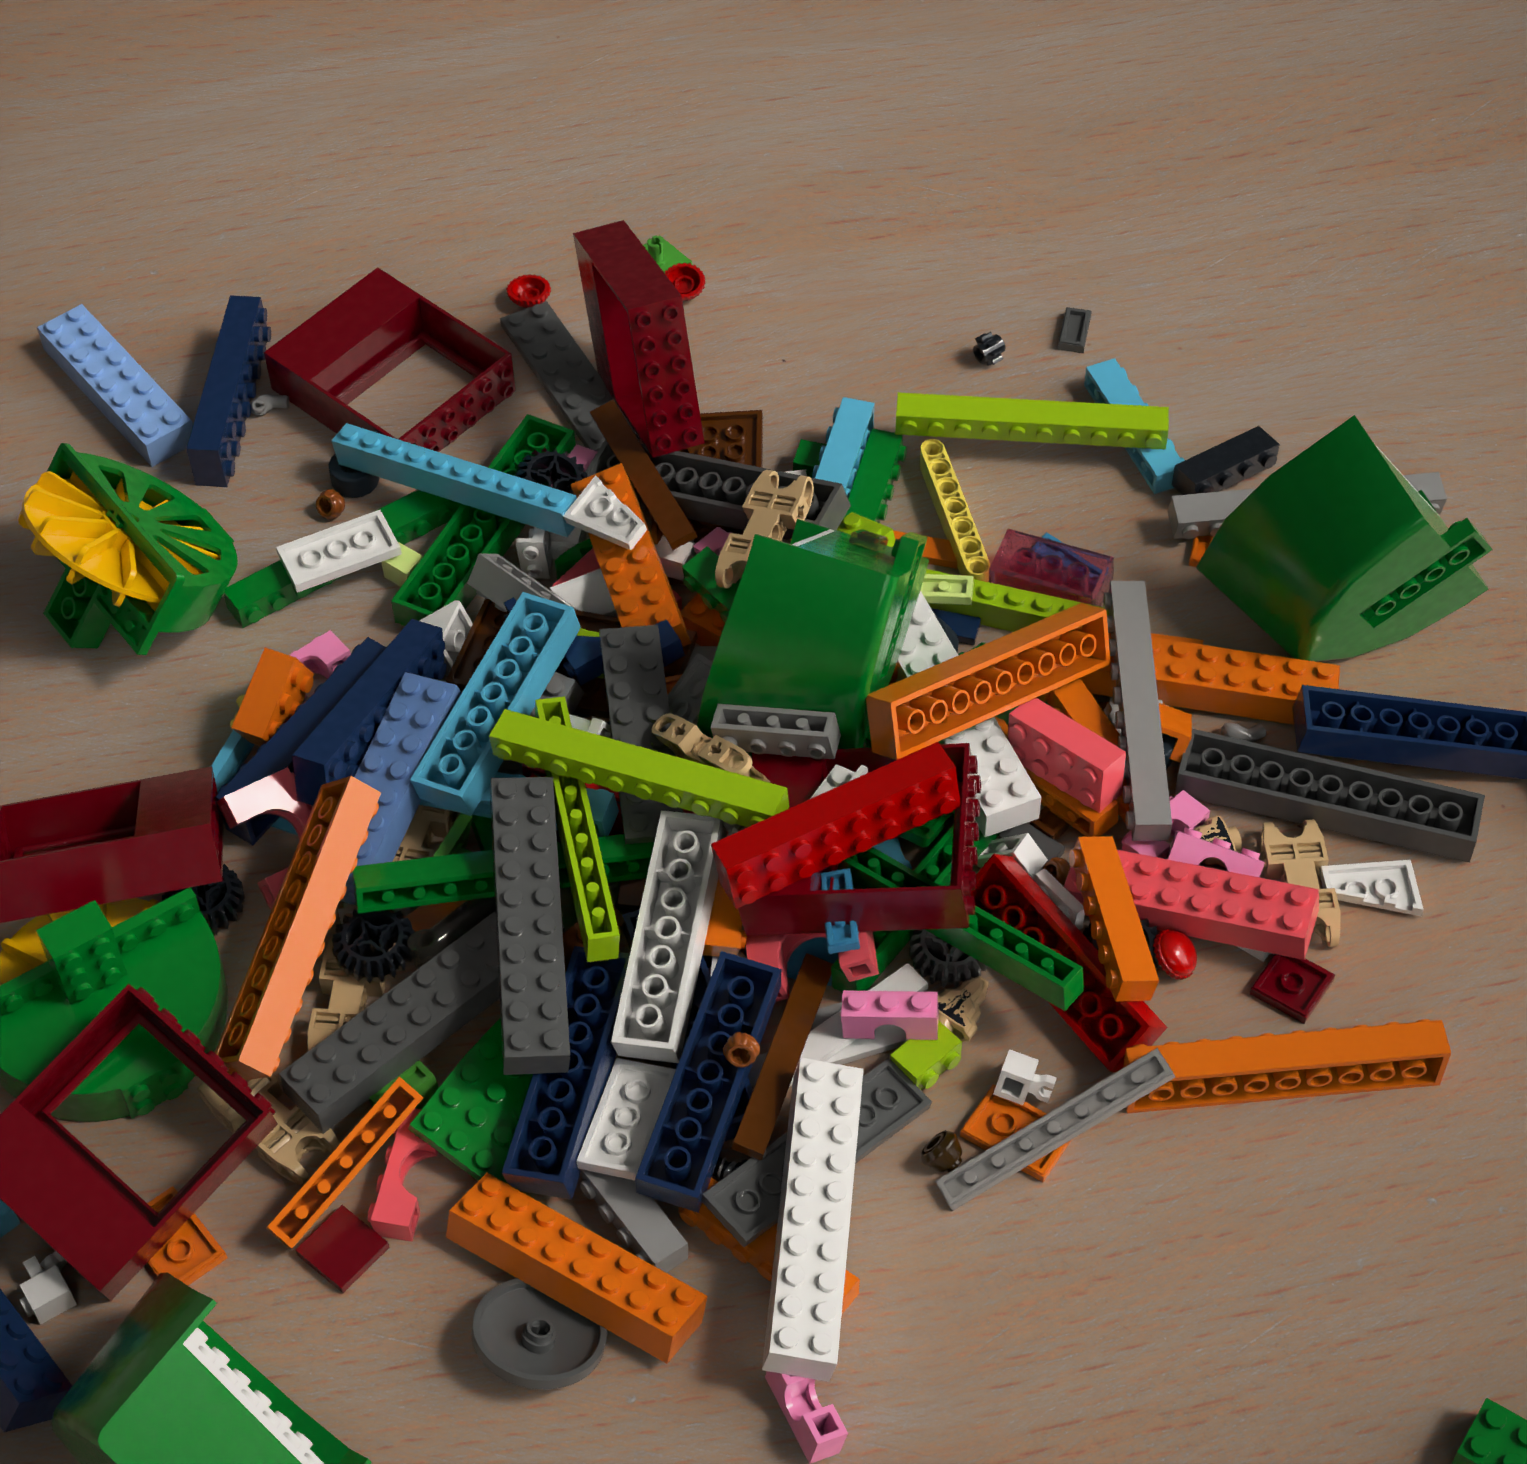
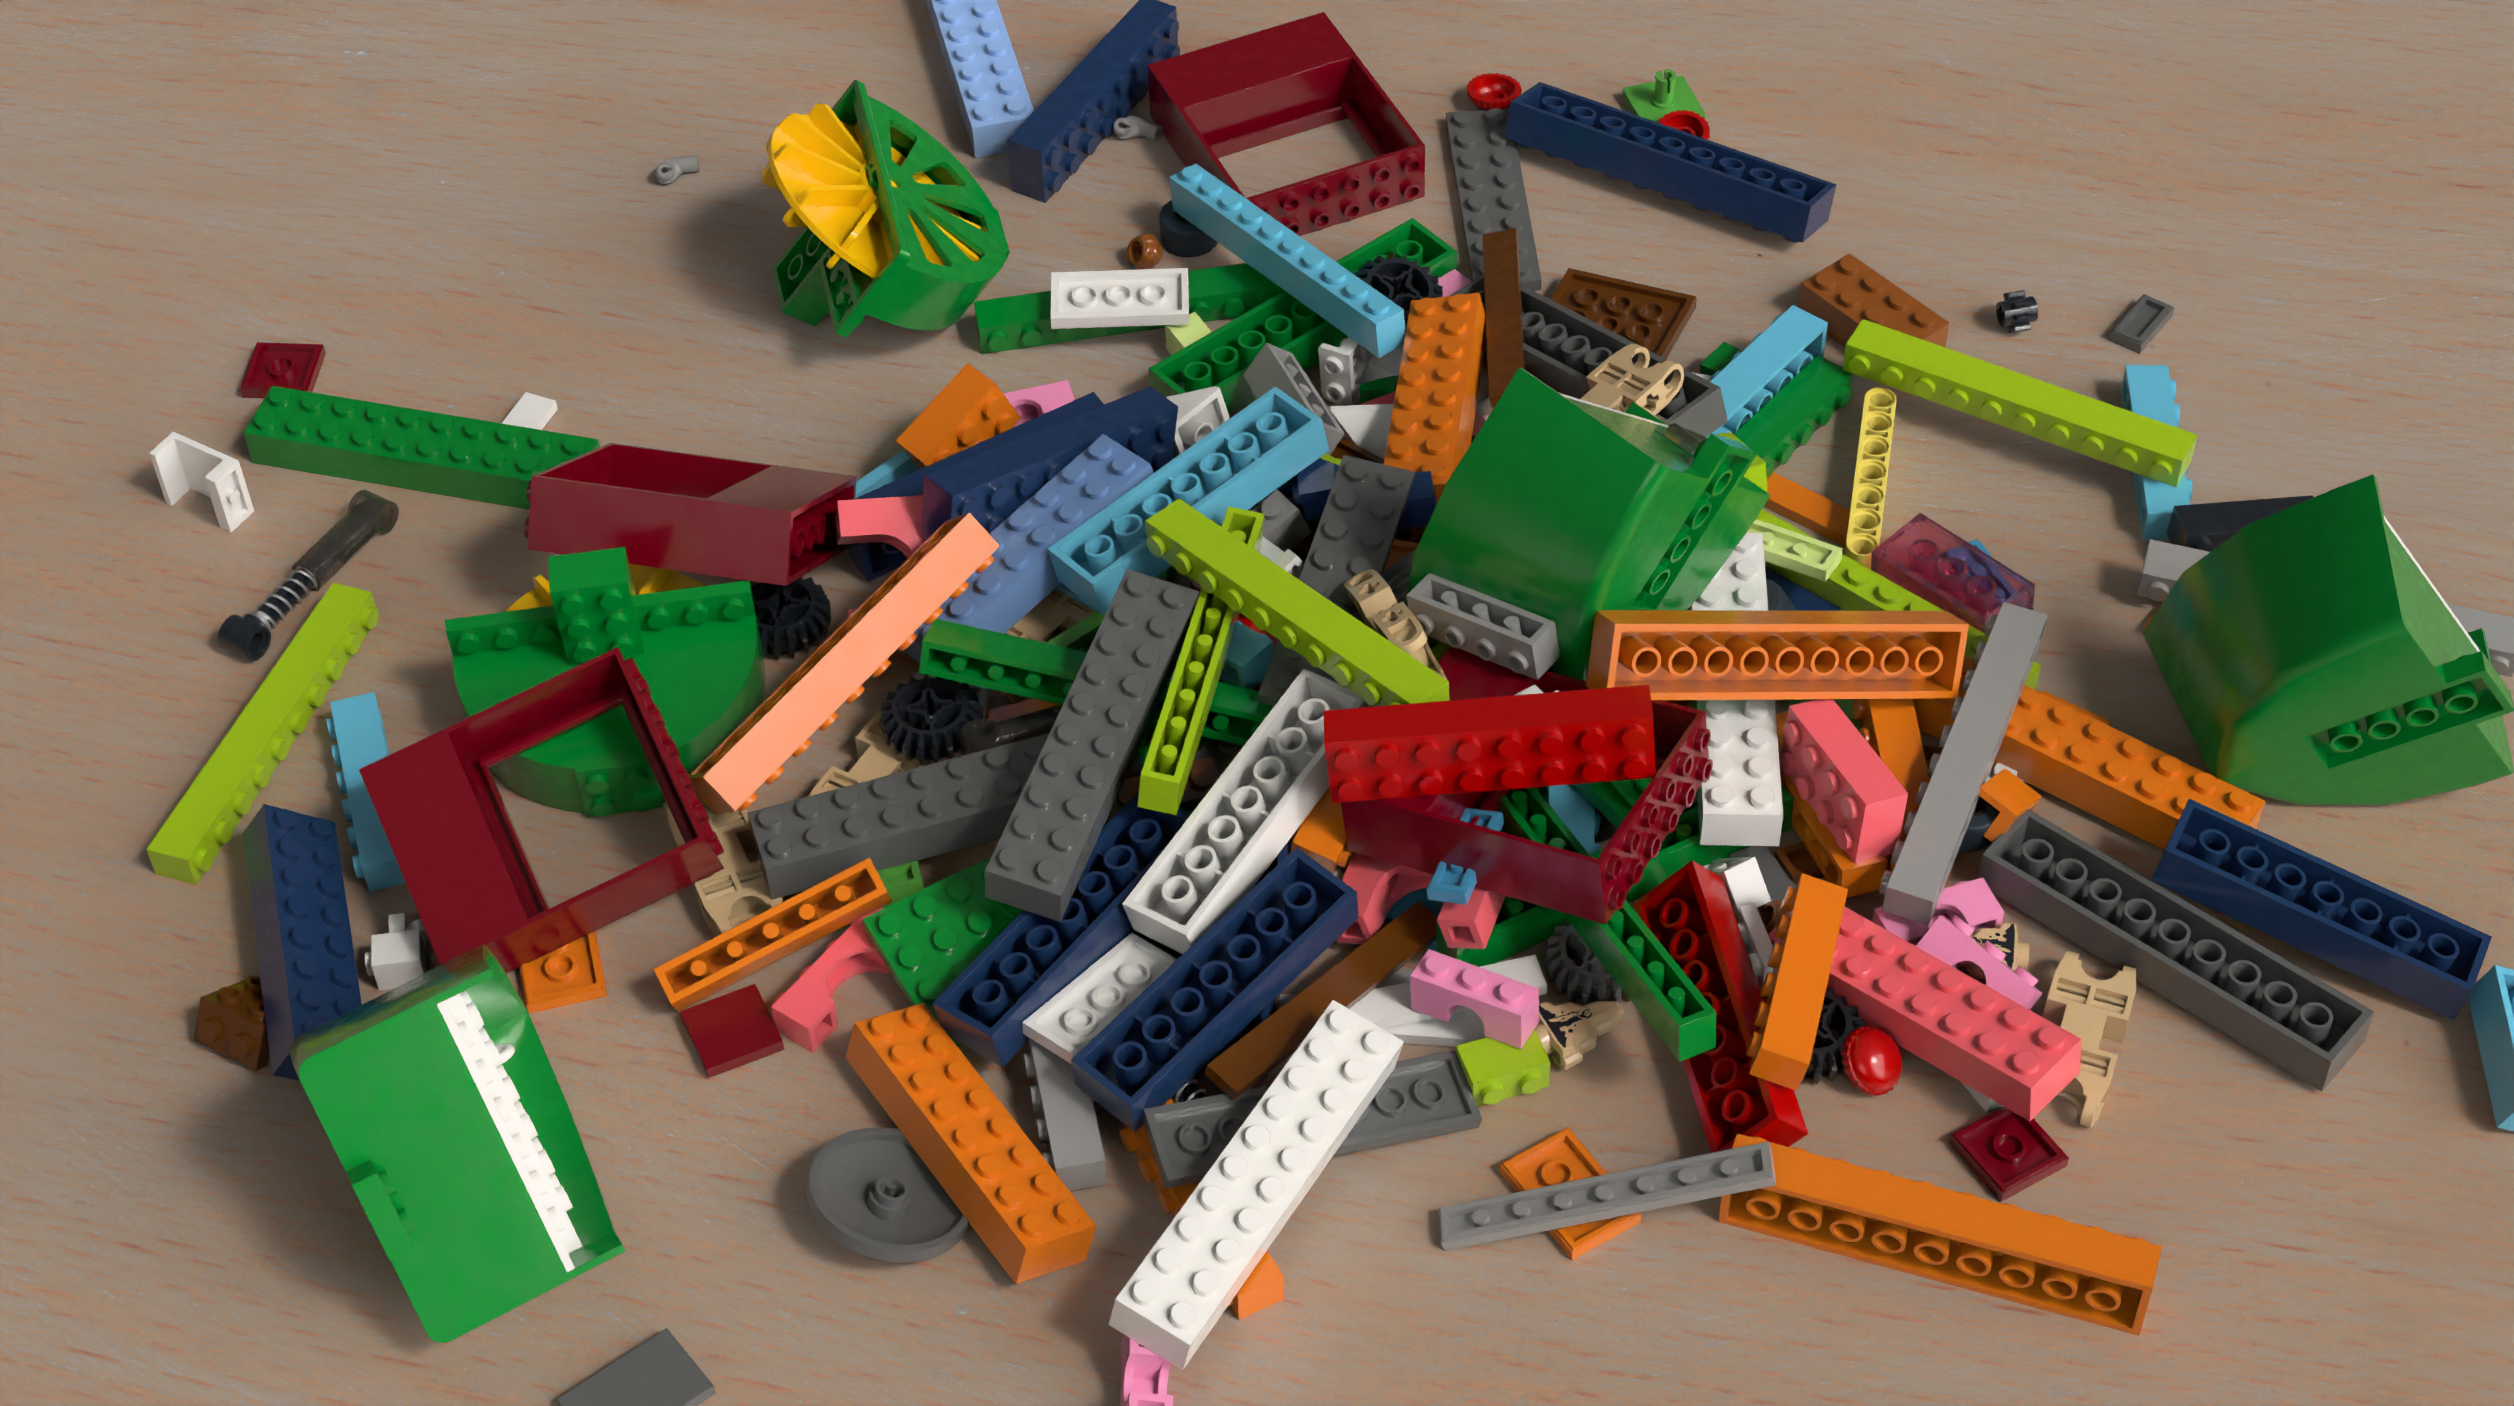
camera: 25 degrees right, 5 degrees down
(604, 515) = (1424, 341): white wing -> none
(639, 337) = (1566, 161): dark red panel -> none
(721, 310) = (1670, 162): none -> dark blue brick
(741, 1049) = (1259, 960): dark orange piece -> none
(879, 376) = (1854, 292): none -> dark orange brick
(942, 1152) = (1463, 1178): dark brown cone -> none
(1019, 1078) = (1600, 1128): white brick -> none
(1239, 732) = (2096, 838): light grey arm -> none
(1375, 884) = (2178, 1072): white wing -> none

